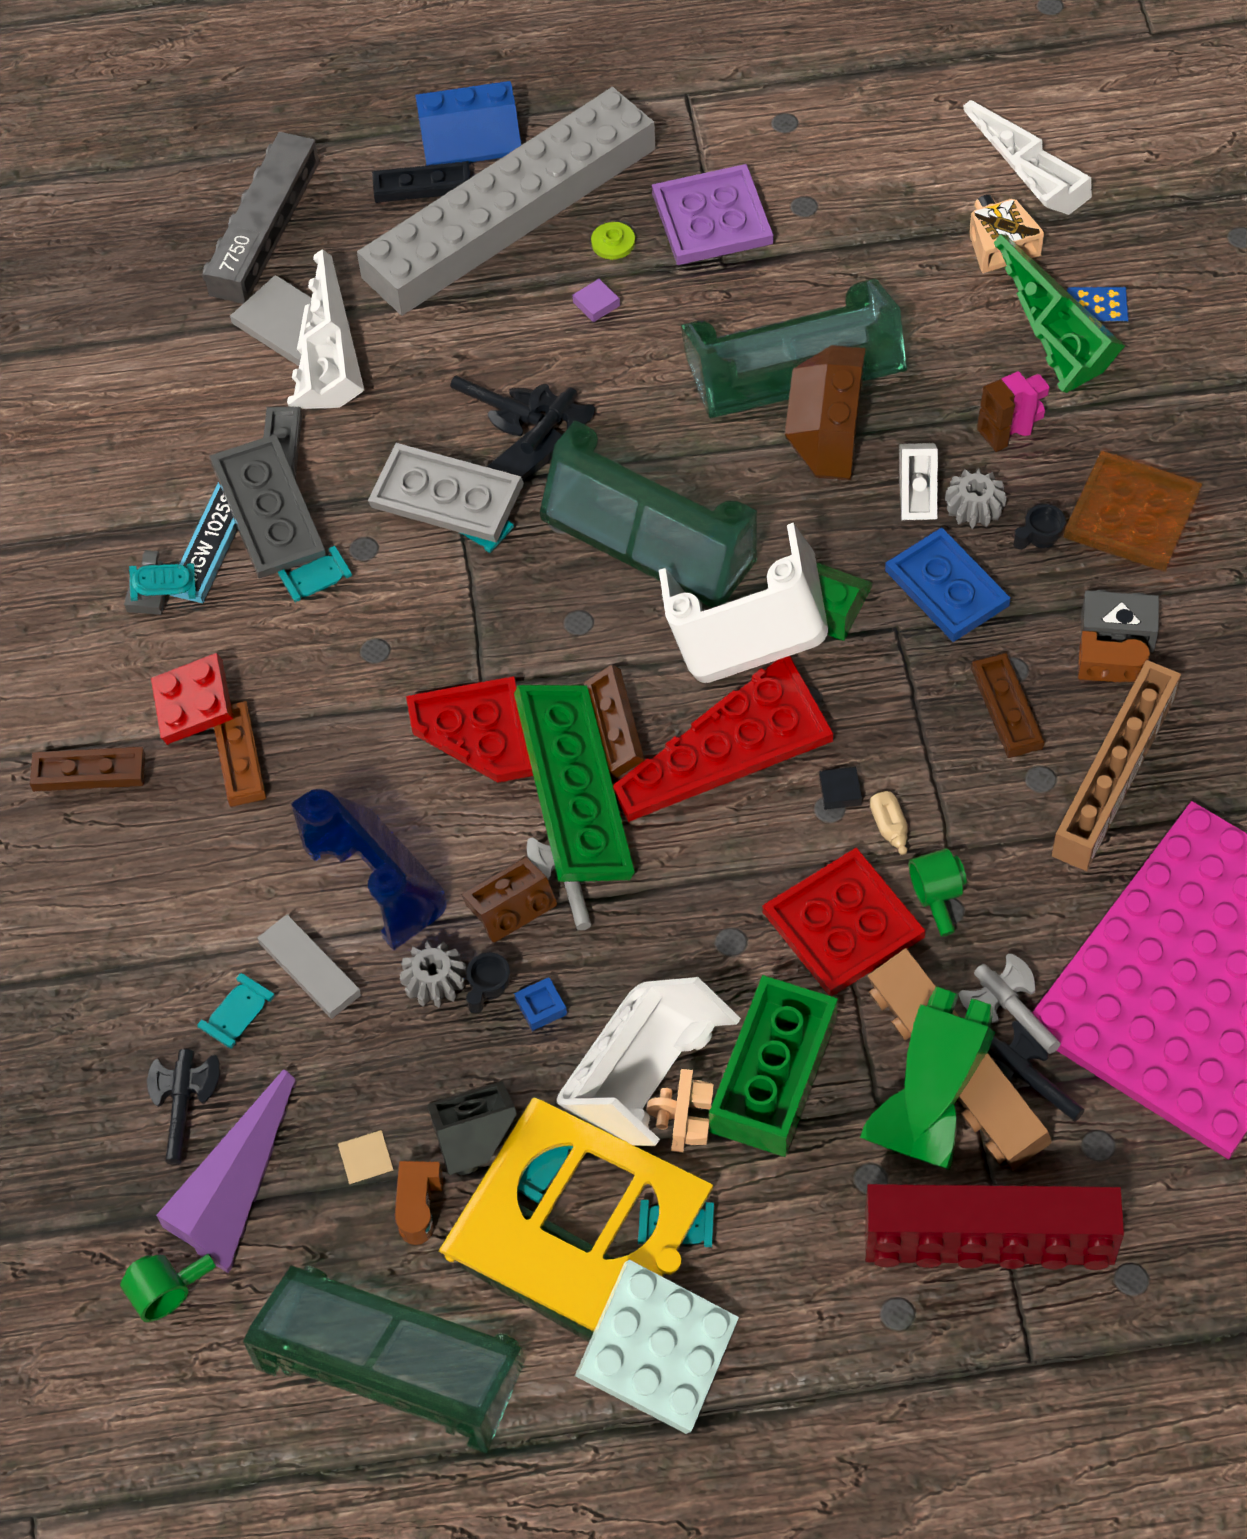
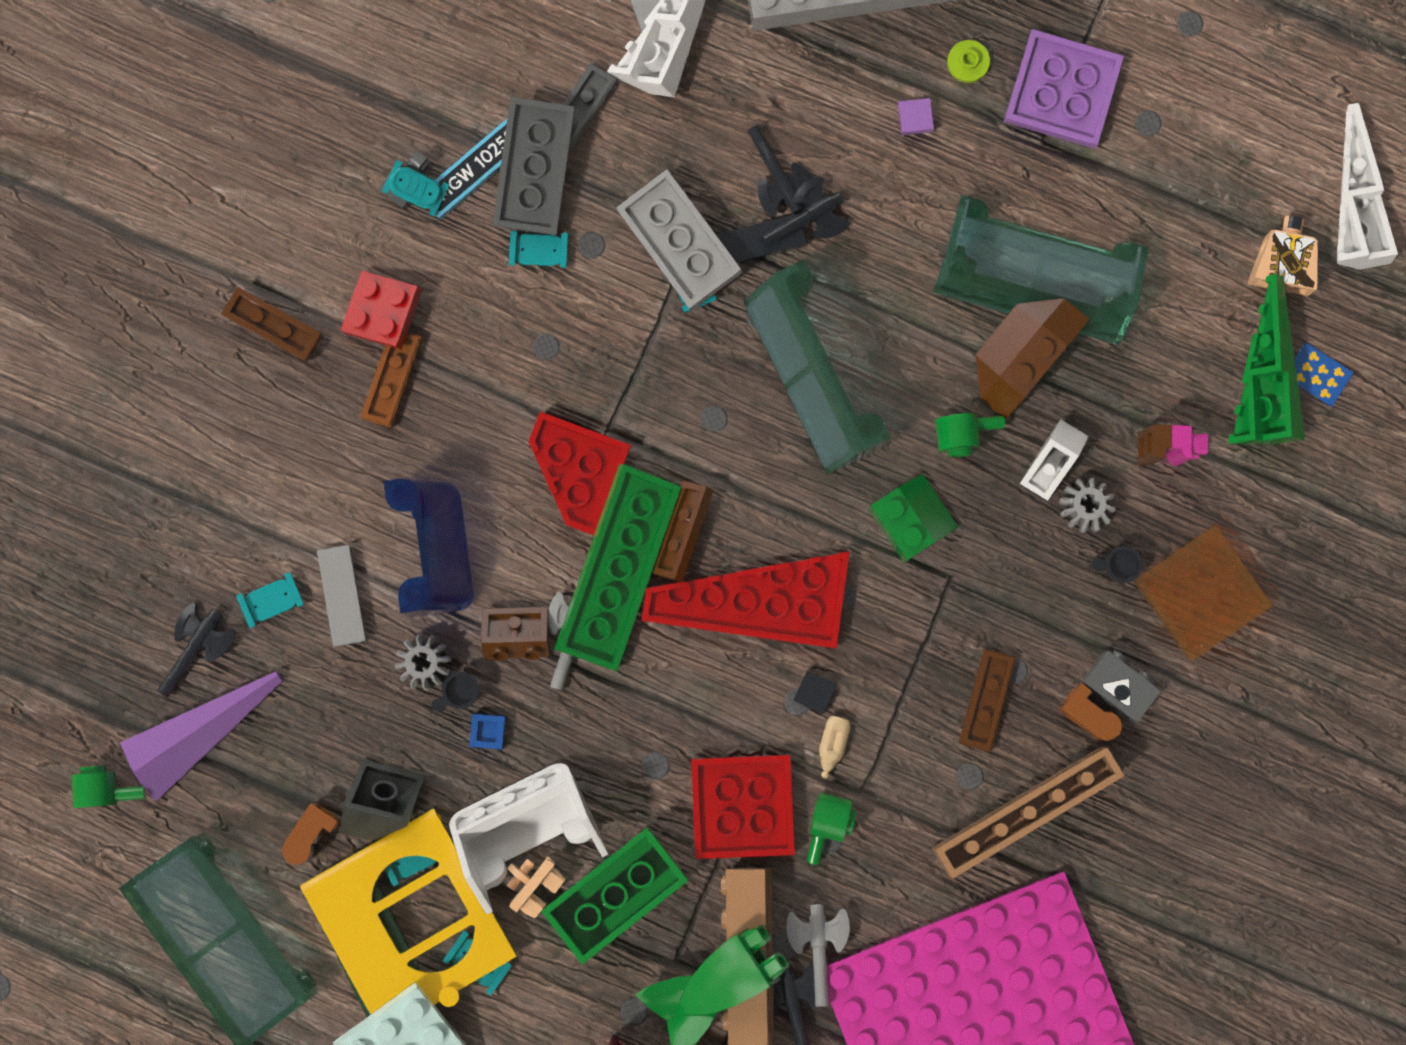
camera: 30 degrees right, 25 degrees up
(365, 1157) = (297, 772): tan sticker -> none
(755, 627) = (857, 542): white windscreen -> none
(817, 502) = (960, 432): none -> green piece
(947, 584) = (1012, 568): blue plate -> none

